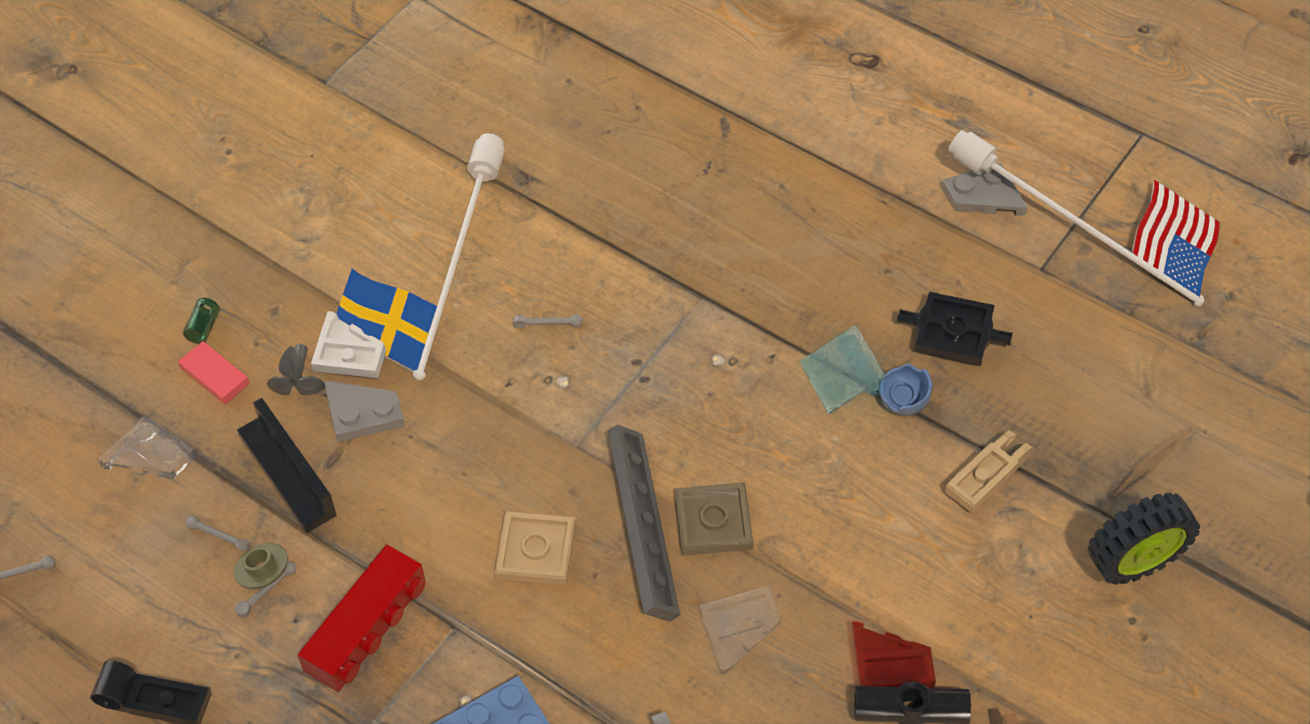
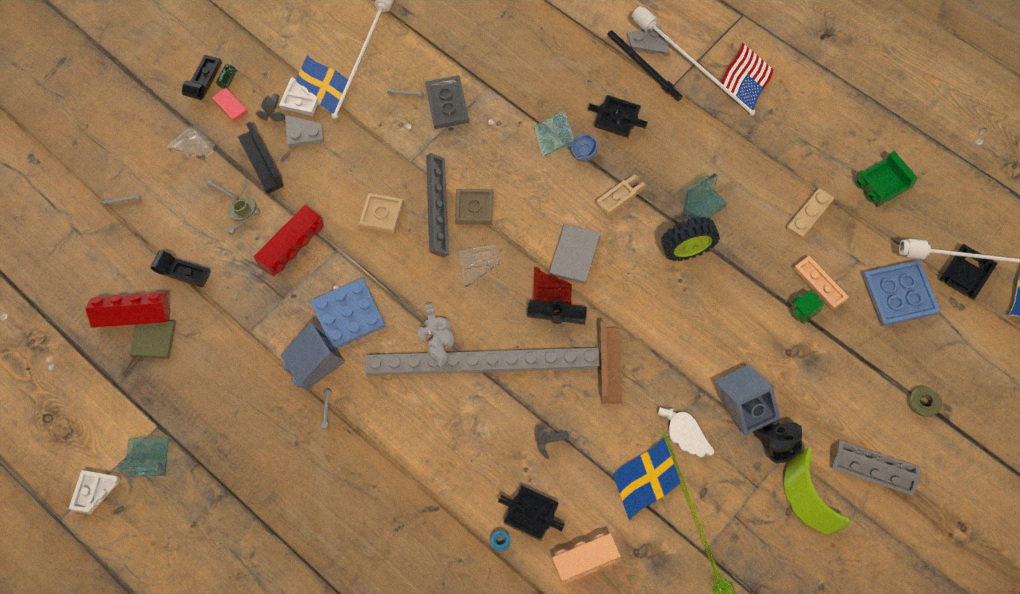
camera: 10 degrees right, 10 degrees up
(155, 327) = (202, 78): none -> black plate
(630, 331) = (447, 102): none -> dark grey plate
(923, 590) = (575, 254): none -> light grey tile
(1033, 266) = (667, 86): none -> black bar
(1147, 465) = (703, 199): none -> clear light blue bracket

